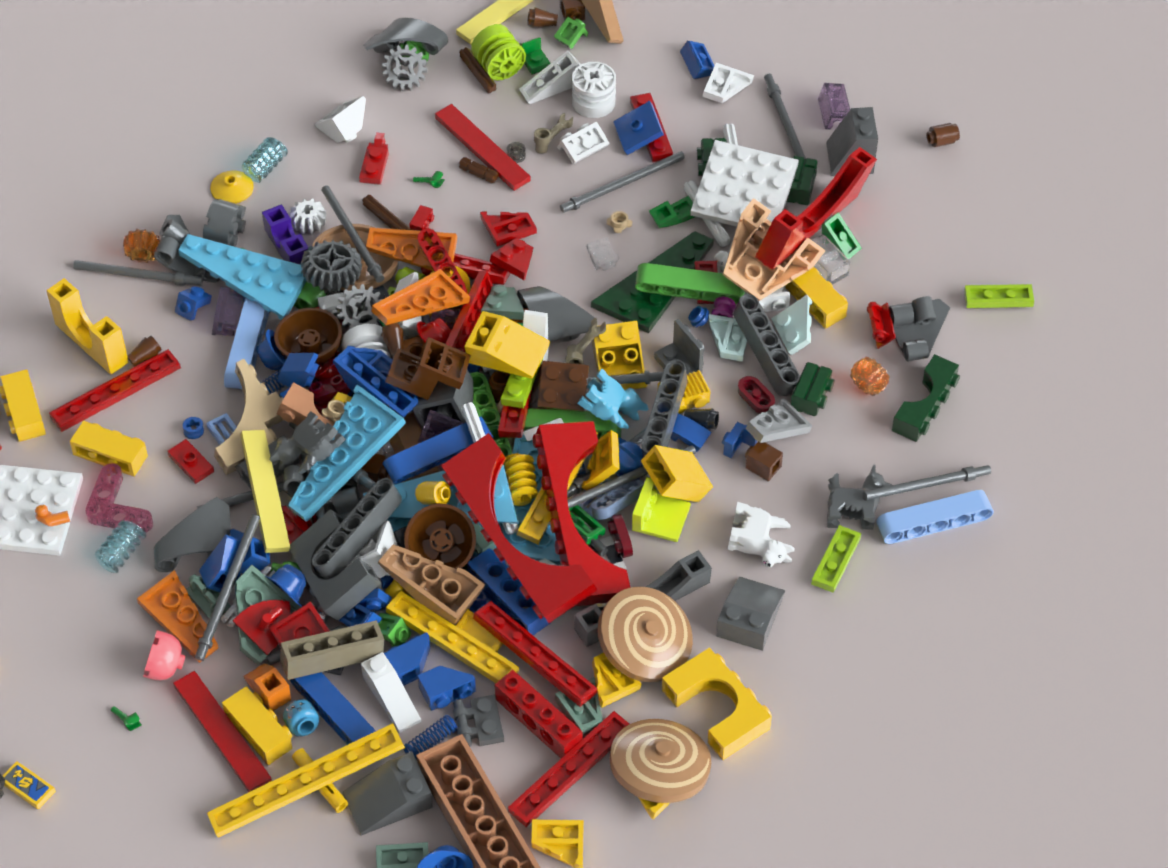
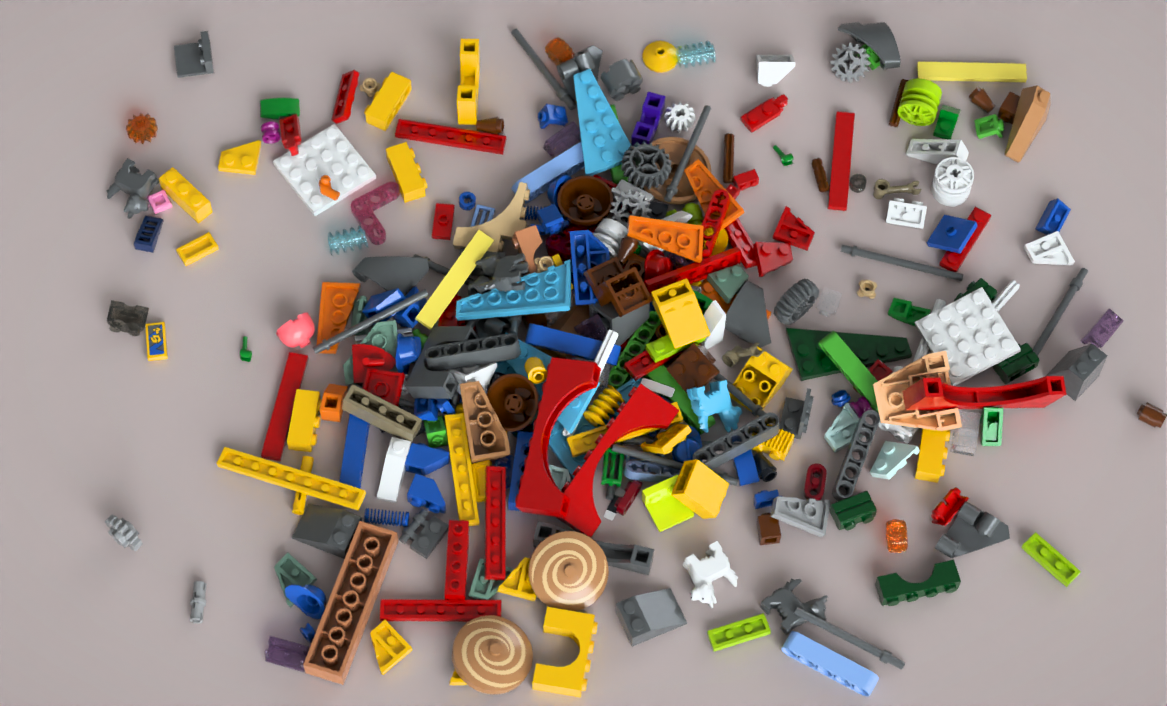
camera: 45 degrees right, 10 degrees up
(301, 717) = (330, 438): dark azure head -> none
(579, 272) = (796, 301): none -> dark grey gear

